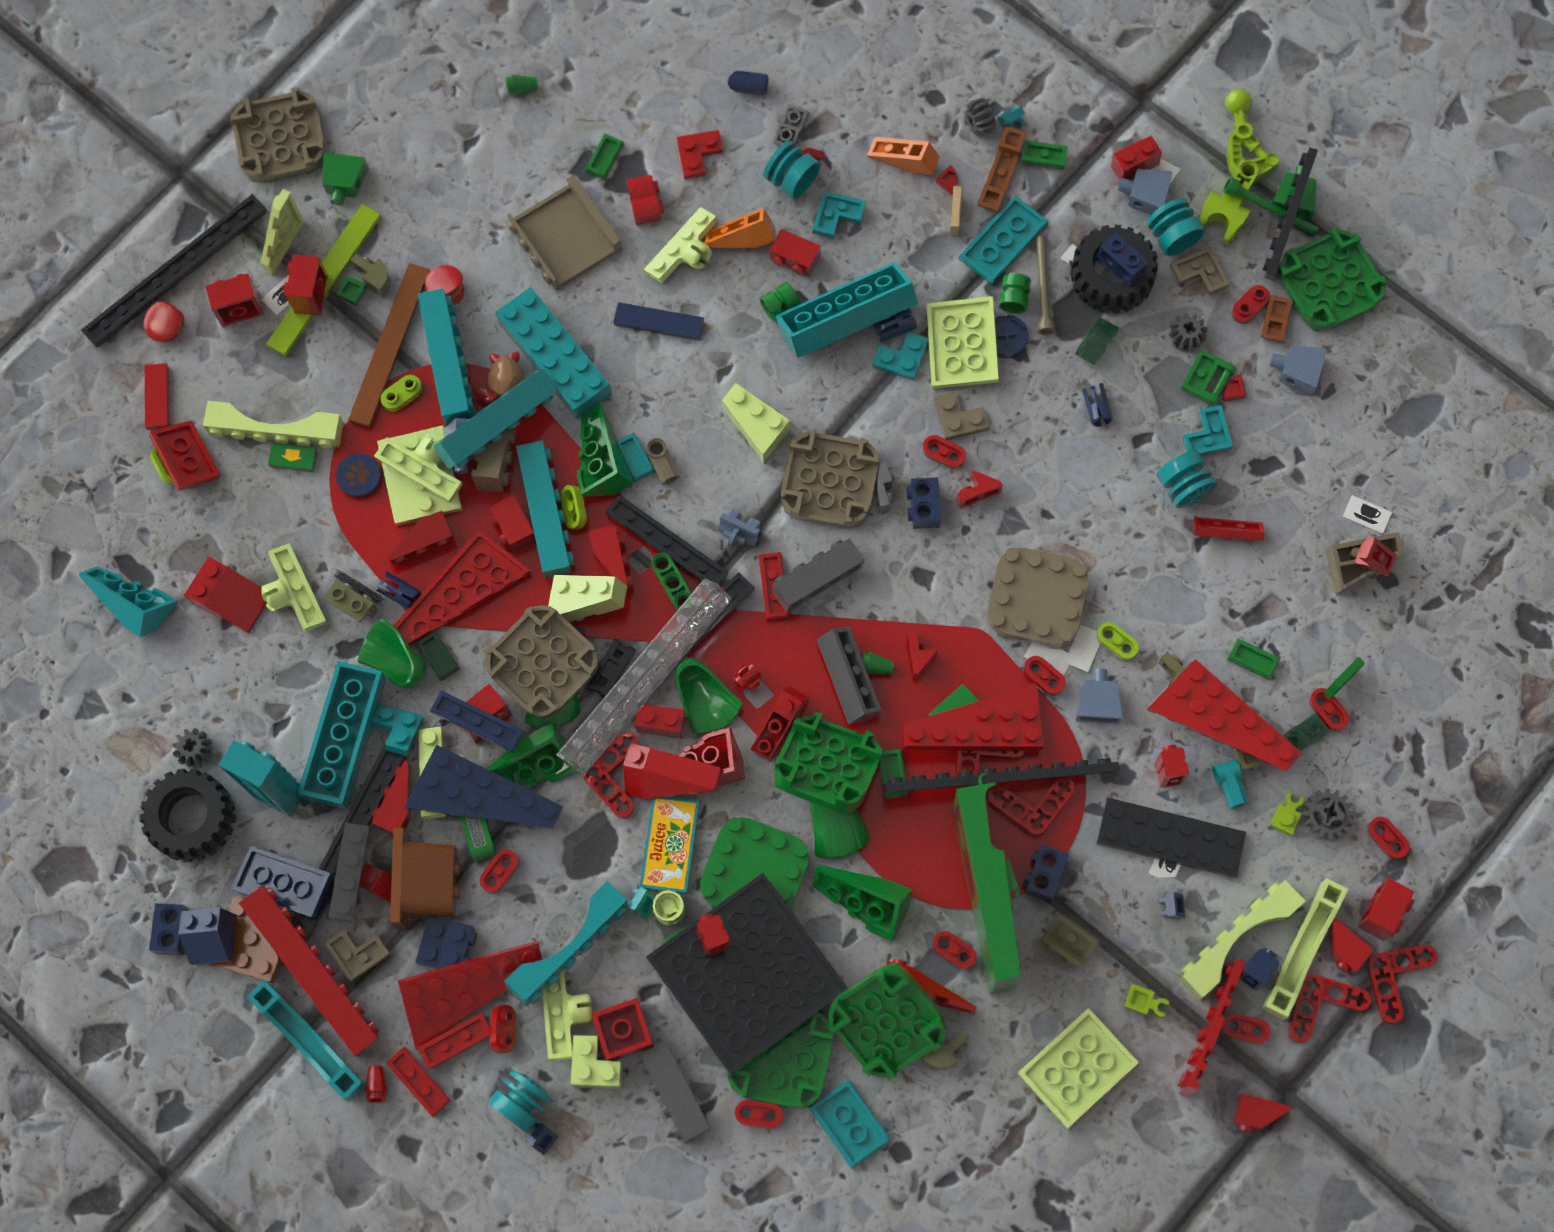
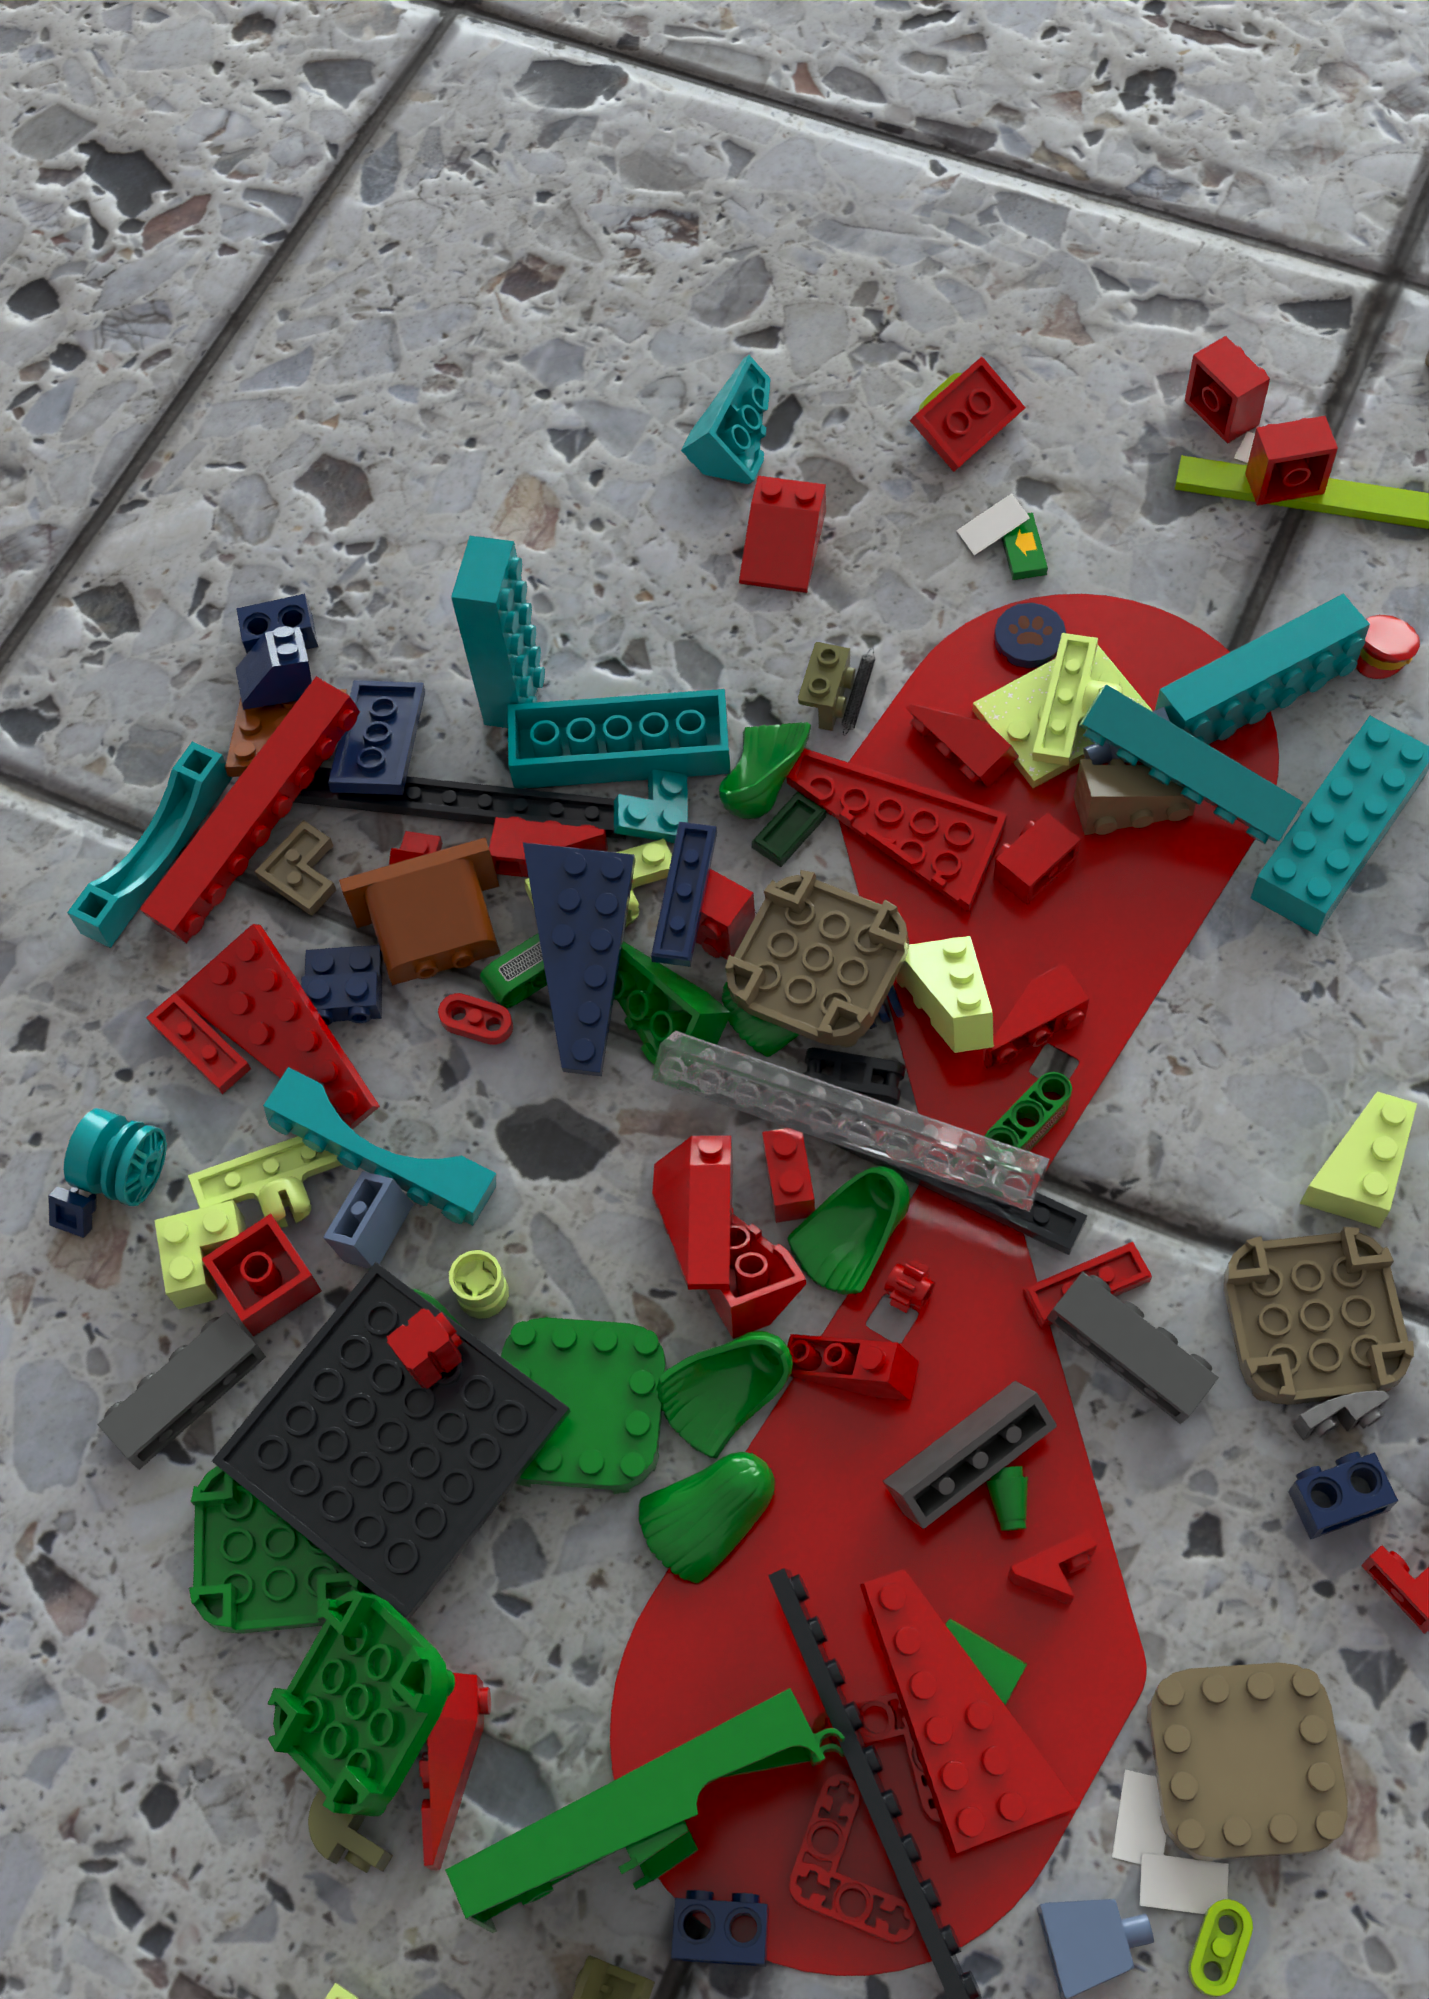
camera: 75 degrees right, 10 degrees down
(156, 396) = (1045, 359): red tile -> none
(163, 322) = (1156, 328): red piece -> none
(167, 794) = (405, 570): black tyre -> none
(174, 270) = (1244, 316): black plate -> none
(200, 749) = (546, 567): dark grey gear -> none
(270, 469) = (993, 524): none -> white sticker
(282, 229) = (1366, 403): yellowish green plate -> none
(292, 589) = (820, 608): yellowish green plate -> none
(317, 429) = (1077, 556): yellowish green arch -> none
(348, 872) = (409, 810): dark grey brick -> none
(351, 290) = (1315, 530): green plate -> none
(375, 274) = (1354, 550): olive brick -> none
(375, 1085) = (109, 957): red cone -> none
(389, 346) = (1239, 606): dark orange tile -> none
(402, 394) = (1182, 645): lime plate -> none
(403, 592) = (869, 739): dark blue arm -> none
(418, 1081) = (128, 1015): red tile -> none
(501, 378) = (1275, 763): medium nougat animal -> none
(502, 1028) = (228, 1101): red plate -> none
(543, 509) = (1077, 894): teal brick -> none
(573, 507) = (1092, 937): lime plate -> none
(602, 461) = (1193, 955): green wedge -> none
(605, 770) = (679, 1120): red beam -> none
(610, 961) = (368, 1220): none -> sand blue brick
(635, 457) = (1223, 1000): teal tile -> none
(642, 902) = (480, 1236): teal tile -> none
(662, 462) = (1231, 1041): dark tan piece -> none
(665, 541) = (1094, 1093): black plate -> none
(670, 844) = (589, 1257): tile -> none
(737, 530) = (1158, 1195): sand blue hips -> none
(759, 1114) = (172, 1539): red plate -> none
(770, 804) = (723, 1388): none -> green hair
(827, 763) = (795, 1462): green plate -> none
(849, 1124) = (188, 1699): teal tile -> none
(871, 899) = (586, 1625): green wedge -> none
(890, 767) = (833, 1583): green tile -> none
(954, 950) = (530, 1795): red plate -> none
(1045, 675) = (1099, 1819): red plate -> none

